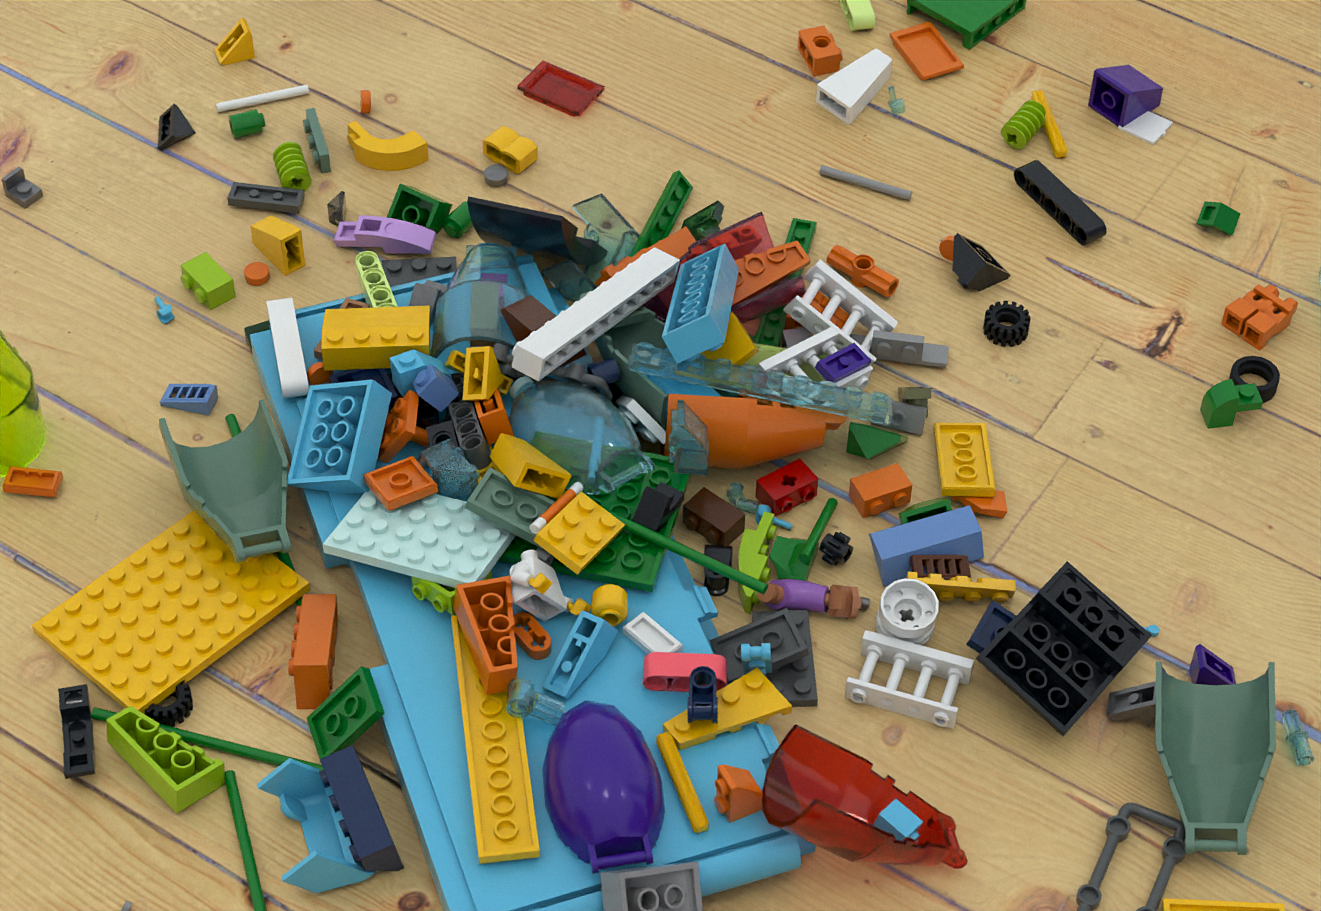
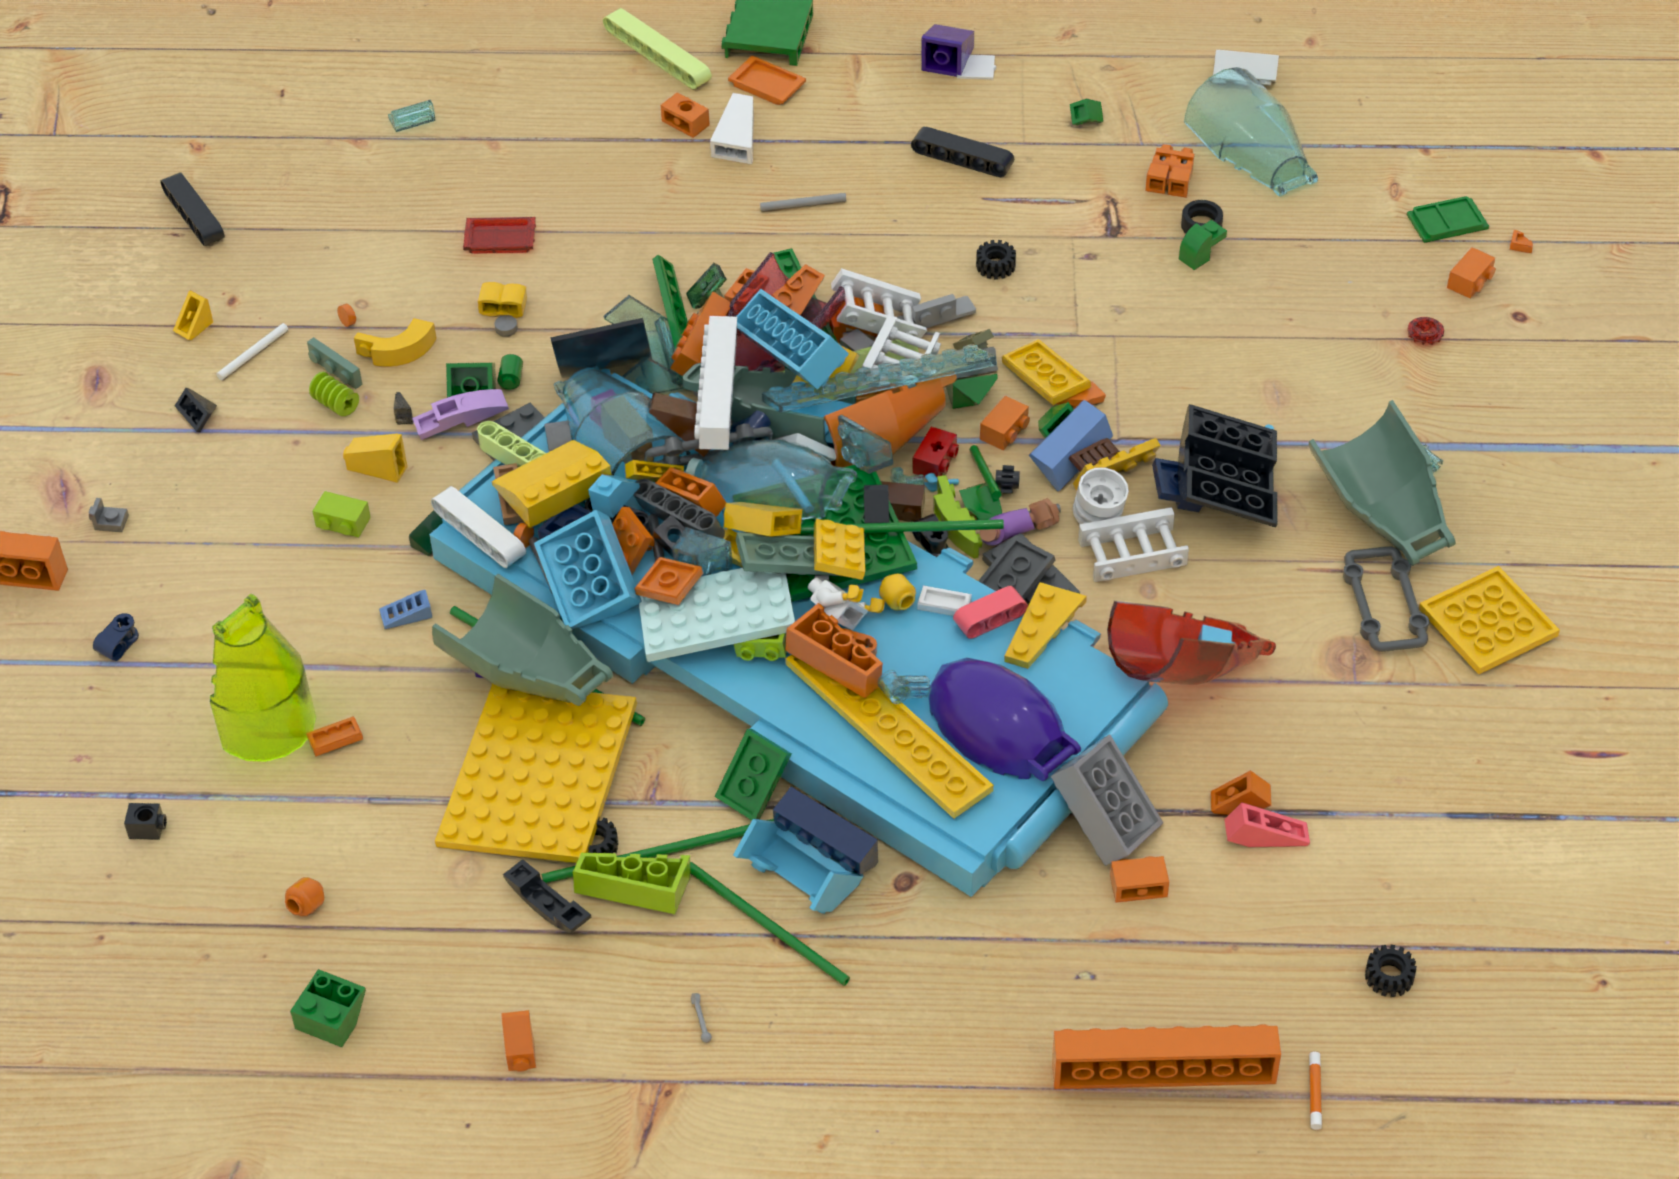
camera: 30 degrees left, 0 degrees up
(164, 313) = (325, 556): medium azure hand -> none
(246, 123) = (259, 376): green brick -> none
(256, 273) = (374, 490): orange tile -> none
(266, 197) = (330, 427): dark grey plate -> none
(314, 649) = (683, 743): orange wedge -> none
(435, 387) = (638, 496): medium blue brick -> none
(481, 374) = (670, 468): yellow slope -> none
(556, 507) = (808, 538): orange bar -> none
(580, 654) = (905, 637): medium azure slope -> none
(682, 782) = (1053, 689): yellow axle -> none
(702, 699) = (1025, 618): dark blue piece -> none
(736, 793) = (1100, 674): orange slope -> none
(756, 657) = (1033, 576): medium azure plate -> none
(842, 363) = (918, 339): dark purple plate -> none
(862, 271) = (859, 264): orange piece -> none
(896, 104) = (777, 130): clear light blue hand -> none
(946, 247) = (911, 221): orange tile -> none
(976, 265) = (940, 227): black slope -> none
(1024, 124) = (890, 104): lime piece -> none
(1051, 128) = (905, 96): yellow axle -> none
(1133, 702) = (1303, 479): flat silver slope -> none
(1210, 669) = (1329, 435): dark purple slope -> none

